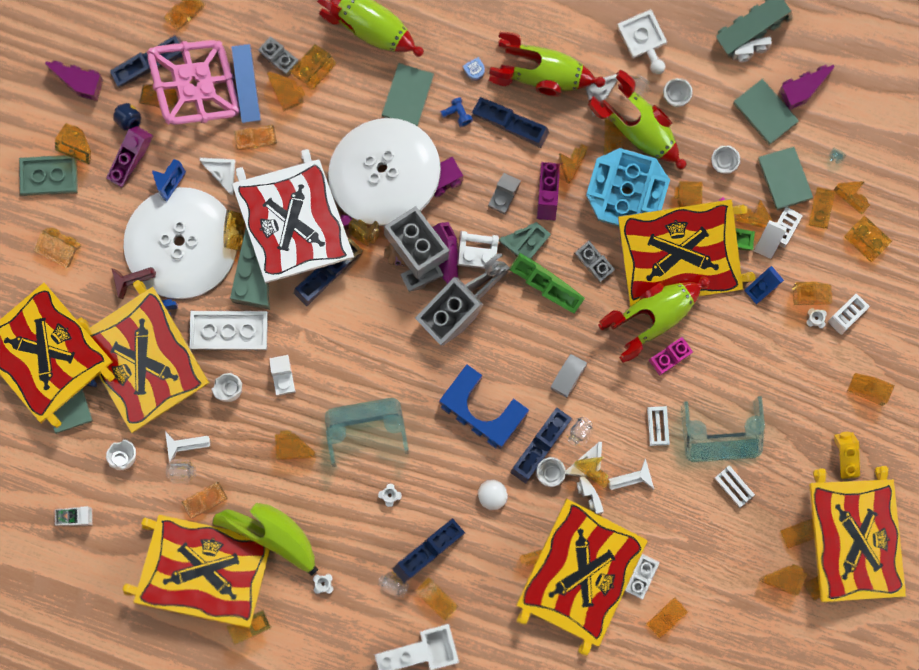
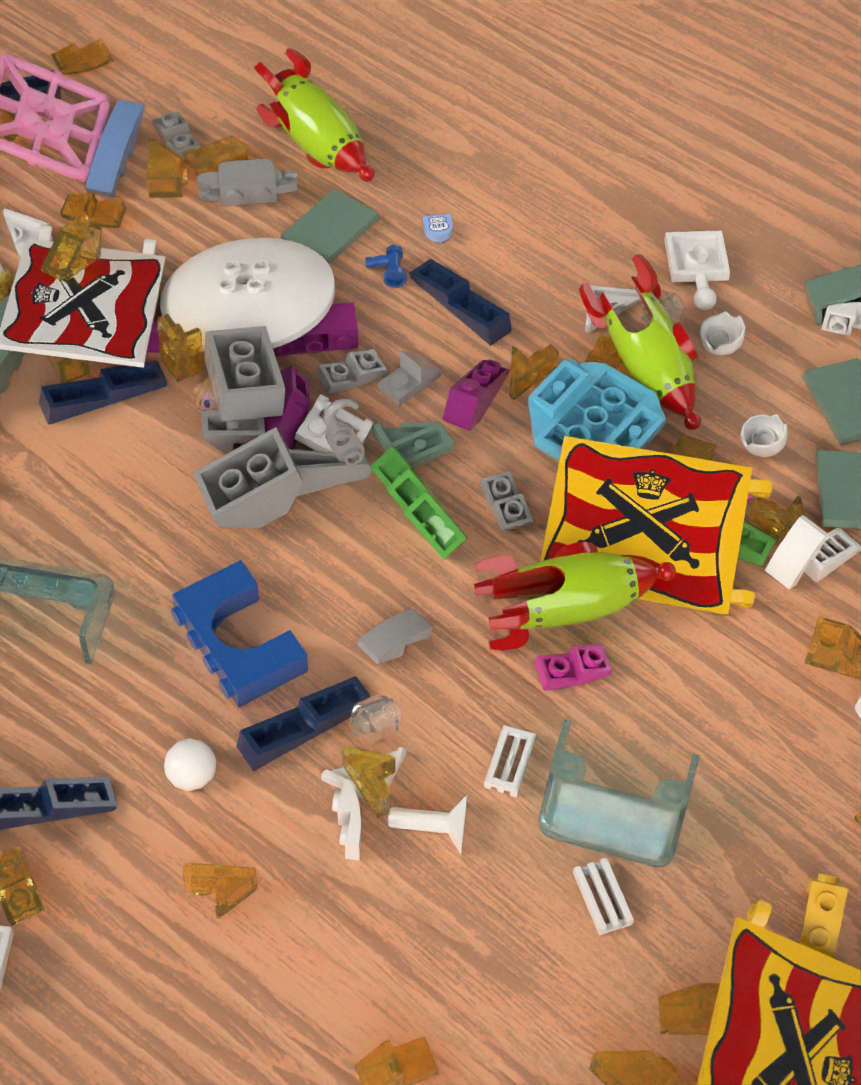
camera: 20 degrees right, 25 degrees down
(269, 187) = (73, 249): none -> clear yellow slope
(343, 80) = (245, 183): none -> light grey hinge
(389, 490) = (23, 700): white plate -> none
(468, 201) = (357, 370): none -> light grey slope
(551, 472) = (300, 758): white hair -> none
(554, 72) = (531, 243): piece -> none
(581, 574) = (275, 935): flag -> none
(642, 576) = (383, 982): white slope -> none
(764, 285) = (765, 614): blue slope -> none
(816, 313) = (840, 685): white plate -> none

